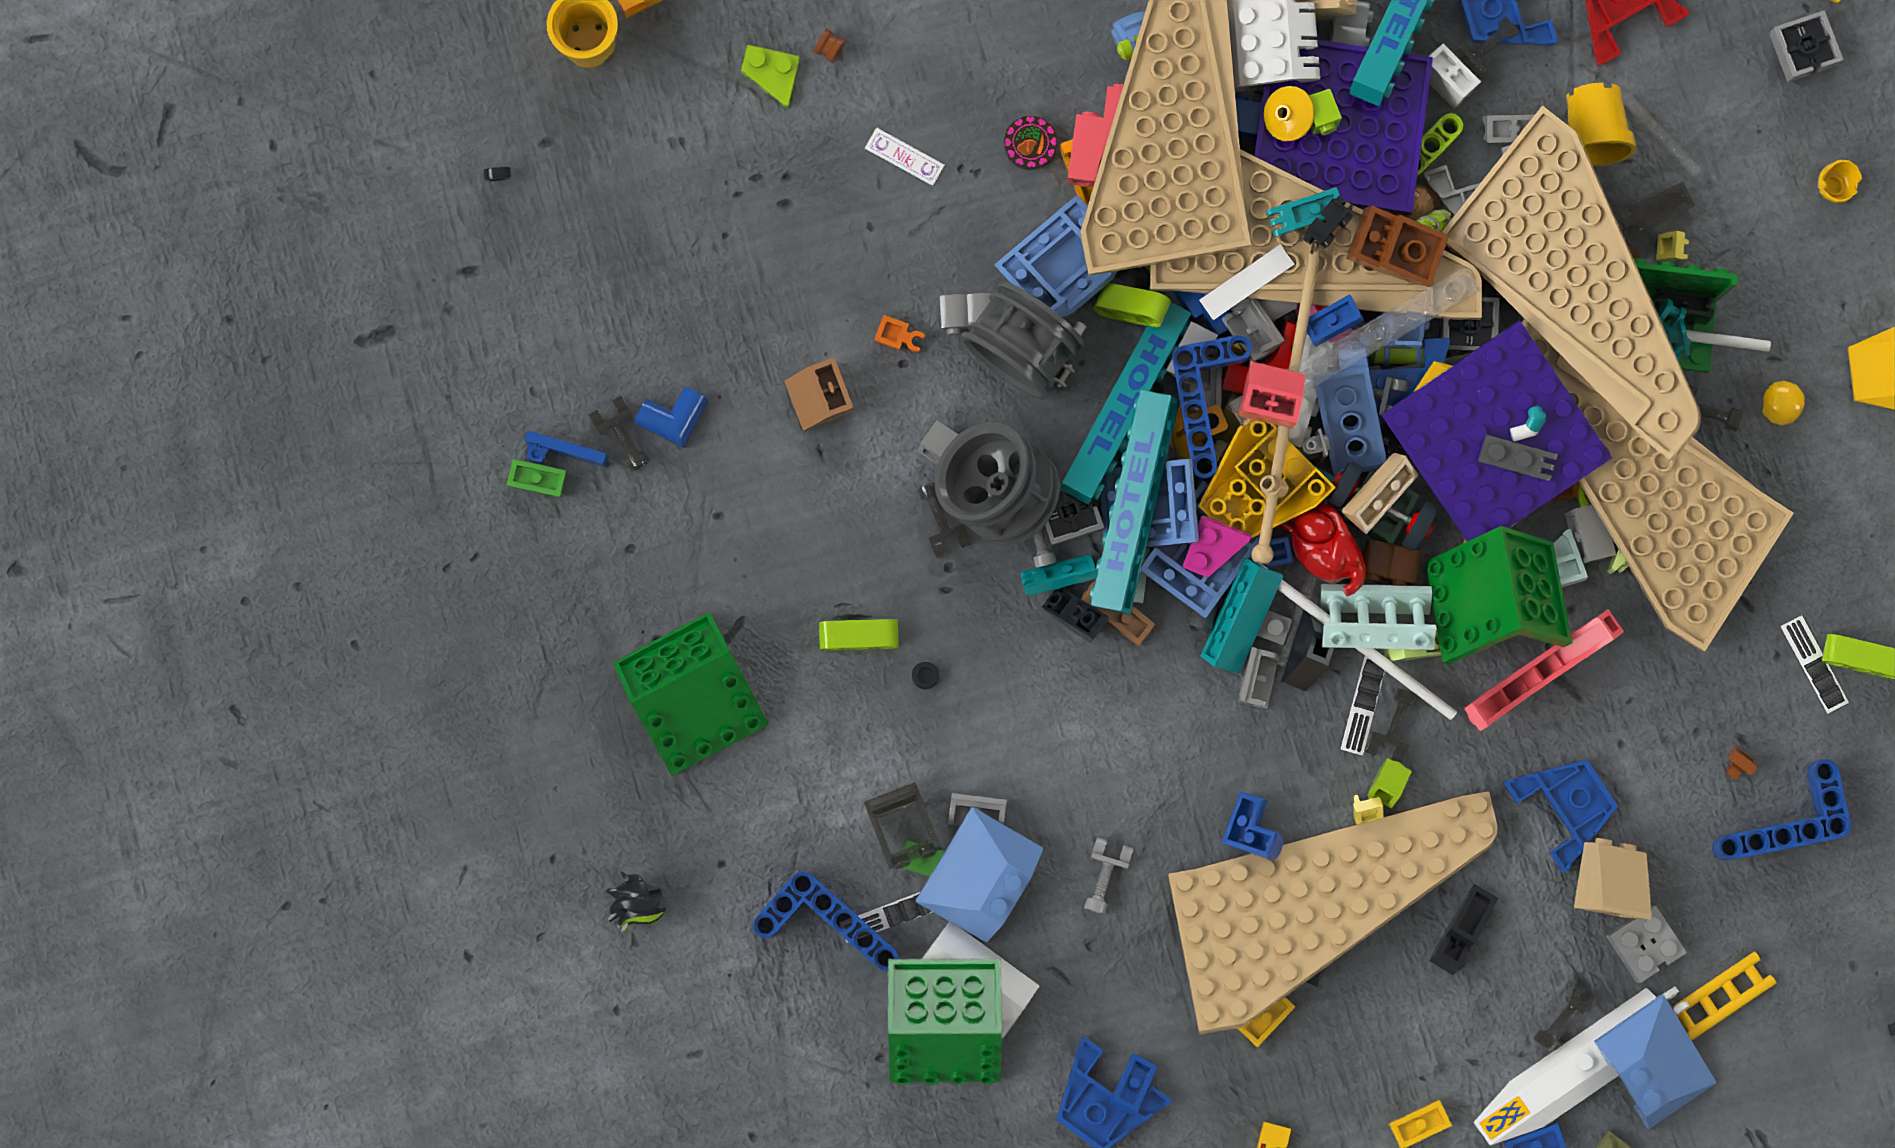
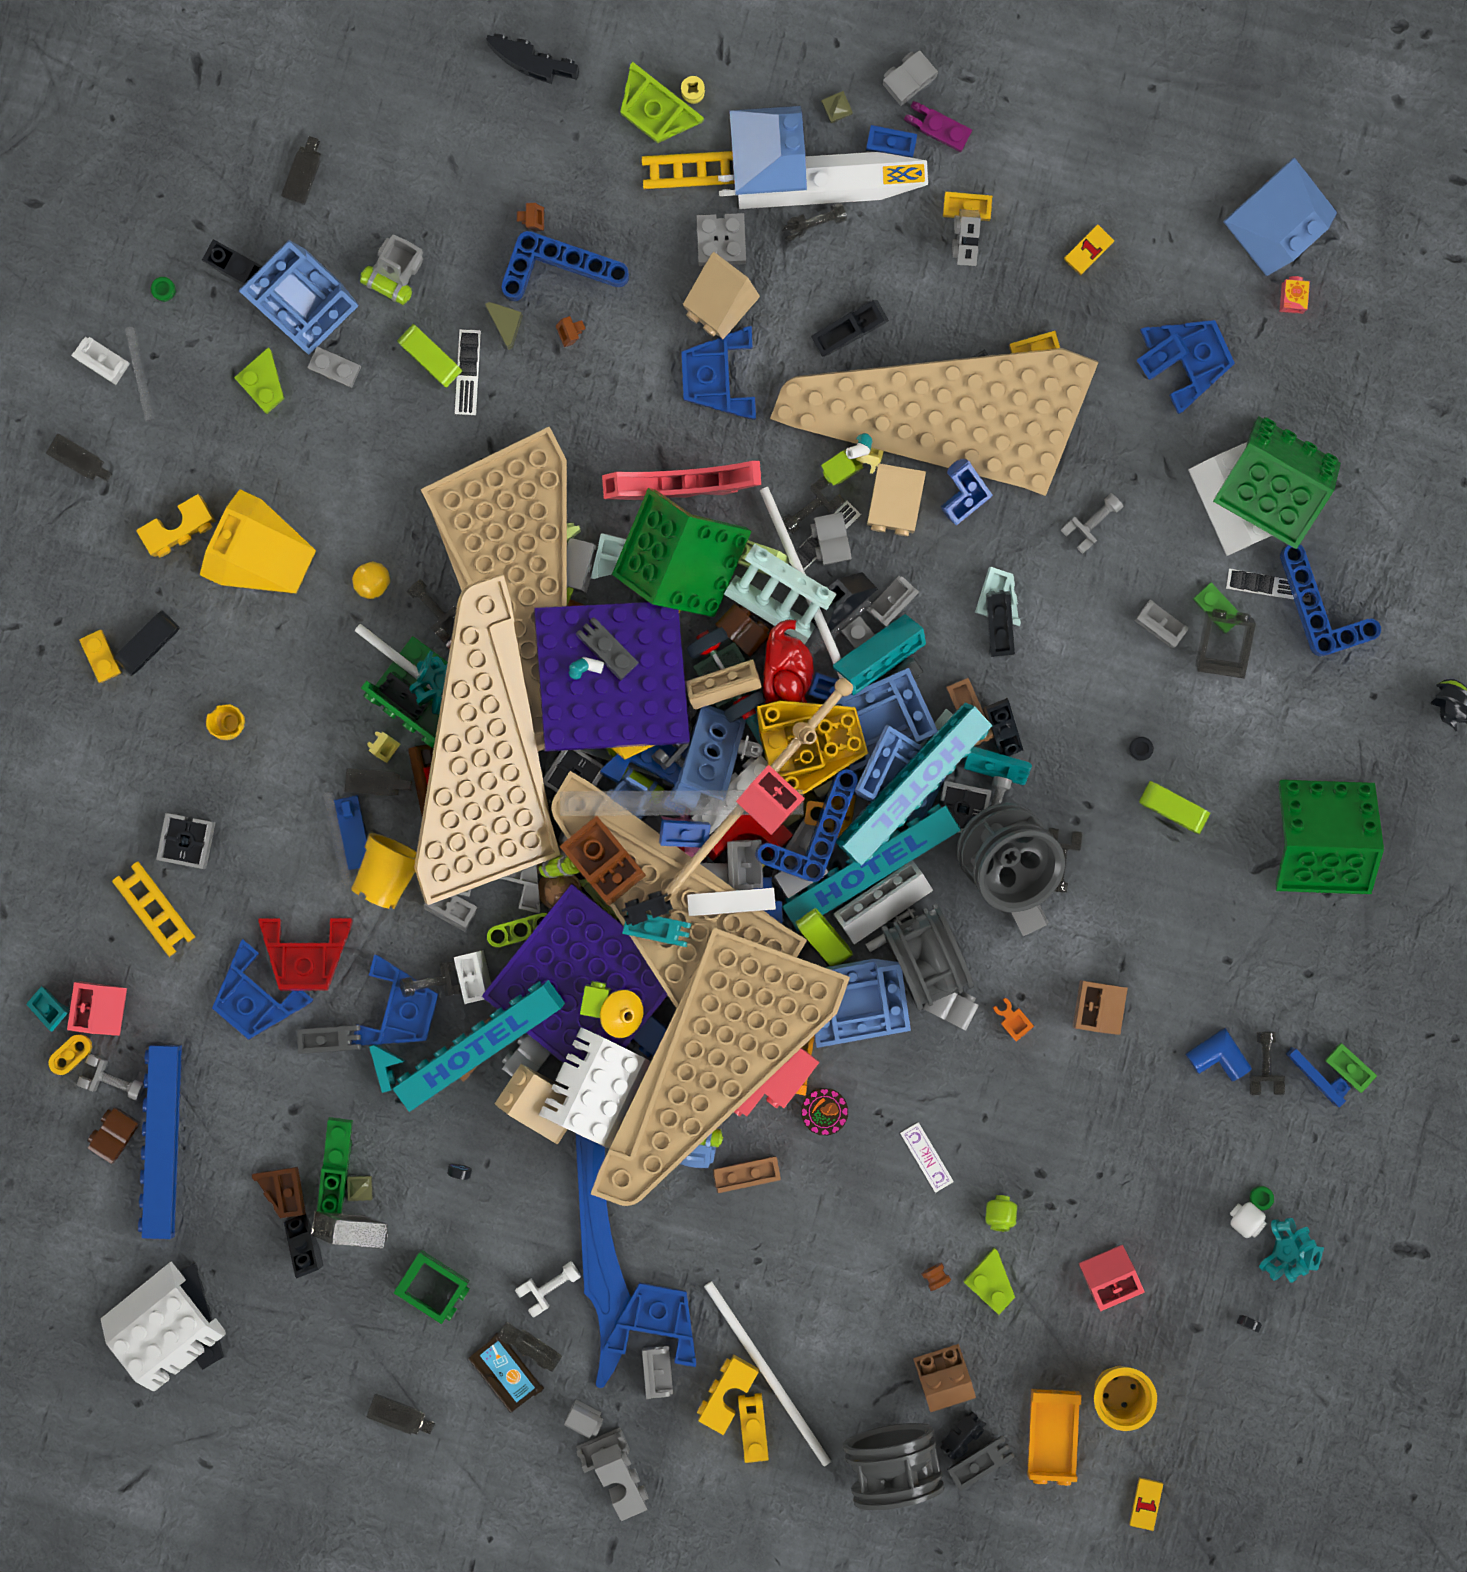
camera: 145 degrees left, 5 degrees up
(494, 266) = (1291, 1251): none -> teal piece
(553, 302) = (1261, 1197): none -> green tile
(555, 272) = (1248, 1220): none -> white head
(658, 139) = (1111, 1277): none -> coral slope
(801, 141) = (1001, 1213): none -> lime head
(980, 875) = (1187, 574): medium blue slope -> none
(1071, 39) = (746, 1174): none -> medium nougat hinge
(1094, 374) = (883, 902): none -> white brick
(1139, 717) = (1000, 623): none -> black hinge
(1154, 743) = (996, 581): none -> light aqua wing
(1215, 546) = (873, 715): dark pink wing -> none
(1316, 779) = (895, 499): none -> tan slope
(1356, 705) = (831, 539): none -> light grey brick
(1381, 810) = (862, 448): none -> white arm
(1401, 1084) = (967, 230): none -> light grey piece
(1654, 152) = (352, 830): none -> blue hinge
(1760, 1081) = (692, 94): none -> light yellow wheel
(1793, 1040) = (655, 108): none -> lime wing
(1808, 733) = (506, 321): none -> olive slope
(1847, 856) = (532, 217): none -> dark orange tile

